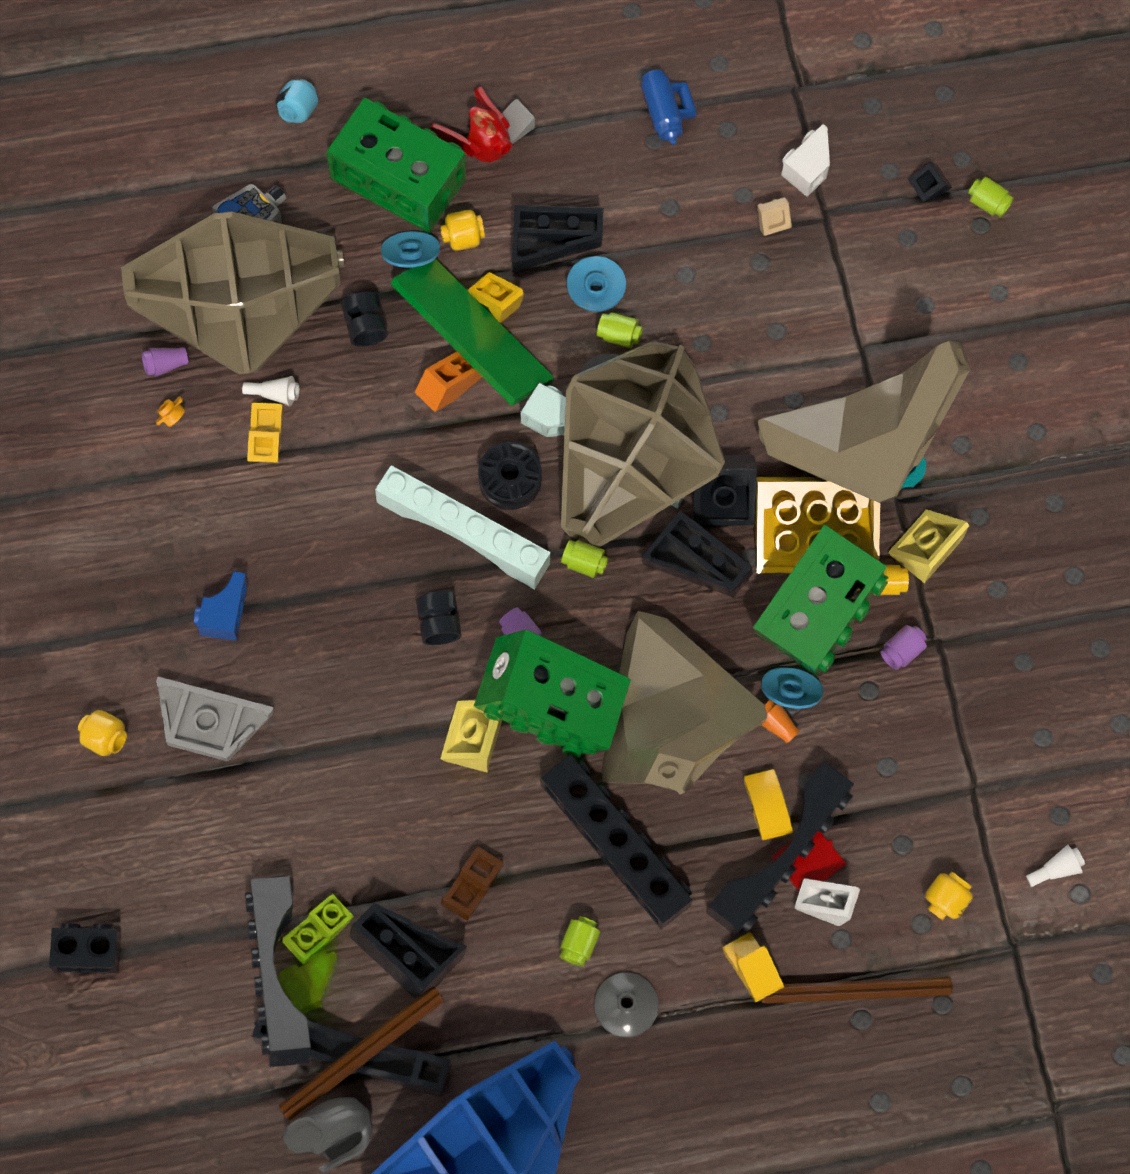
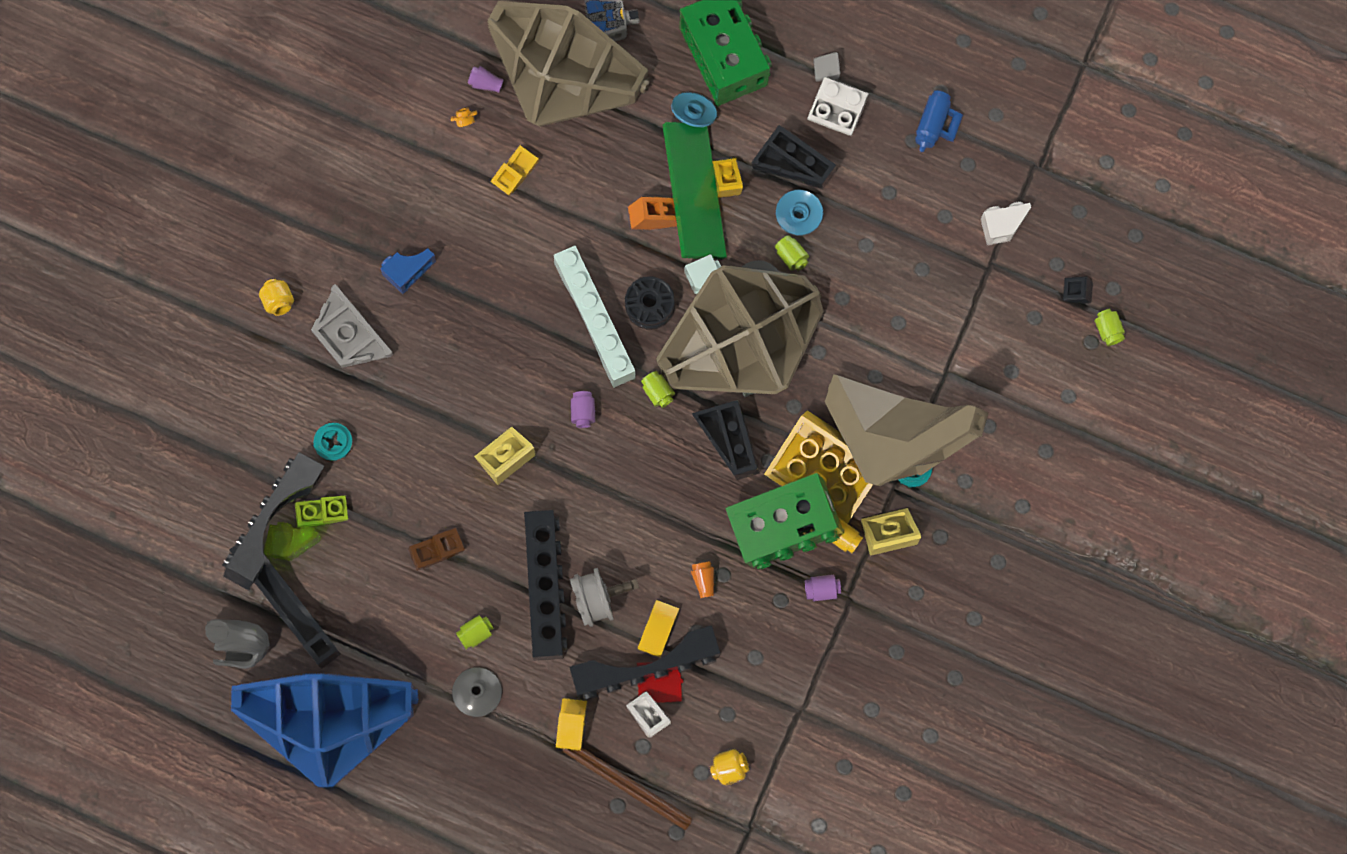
camera: 35 degrees right, 5 degrees up
(83, 958) = (168, 430): black brick -> none
(263, 839) = (328, 431): none -> teal gear
(280, 390) = (543, 148): white cone -> none
(361, 1053) = (286, 607): reddish brown axle -> none
(364, 319) = (628, 141): black wheel -> none
(405, 950) = (363, 564): black wedge -> none
(438, 618) = (536, 364): black wheel -> none
(462, 230) = (737, 119): yellow head -> none
(488, 131) = (801, 63): red piece -> none
(552, 693) = (565, 463): green piece -> none
(557, 151) = (838, 106): none -> white slope
(676, 709) = (638, 527): dark tan panel -> none
(683, 814) = (594, 596): none -> light grey wheel
(729, 496) = (782, 410): black slope -> none
(774, 216) = (952, 244): tan tile -> none
(792, 688) = (728, 564): dark azure dish -> none
(1063, 864) = (820, 799): white cone -> none

